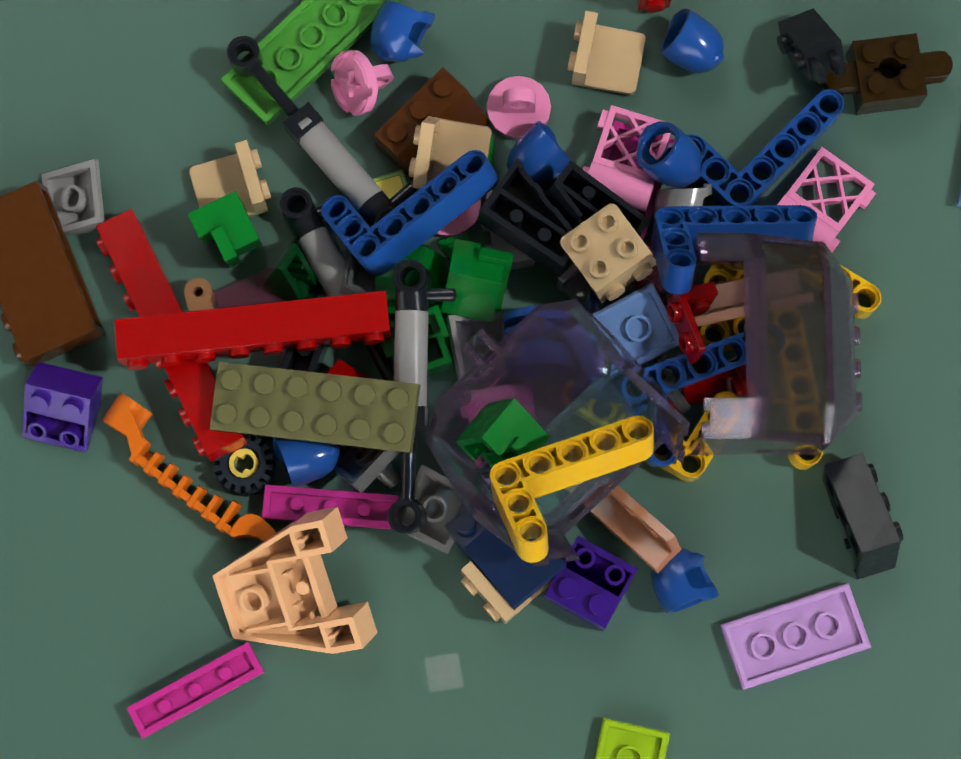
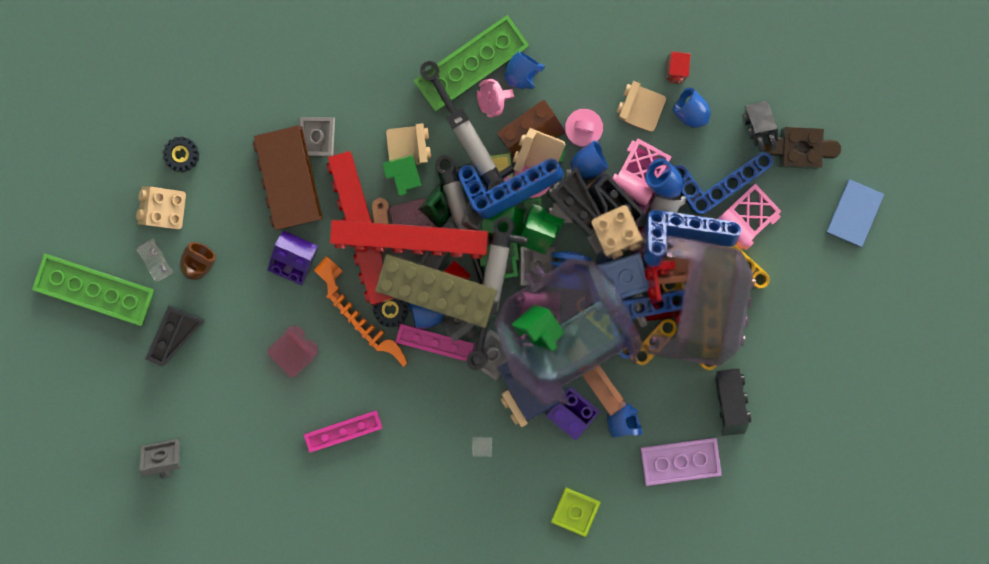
camera: 10 degrees right, 10 degrees up
(87, 565) = (293, 351): none -> clear pink bracket
(284, 593) = (402, 388): light nougat wedge -> none
(559, 473) = (567, 358): yellow beam -> none

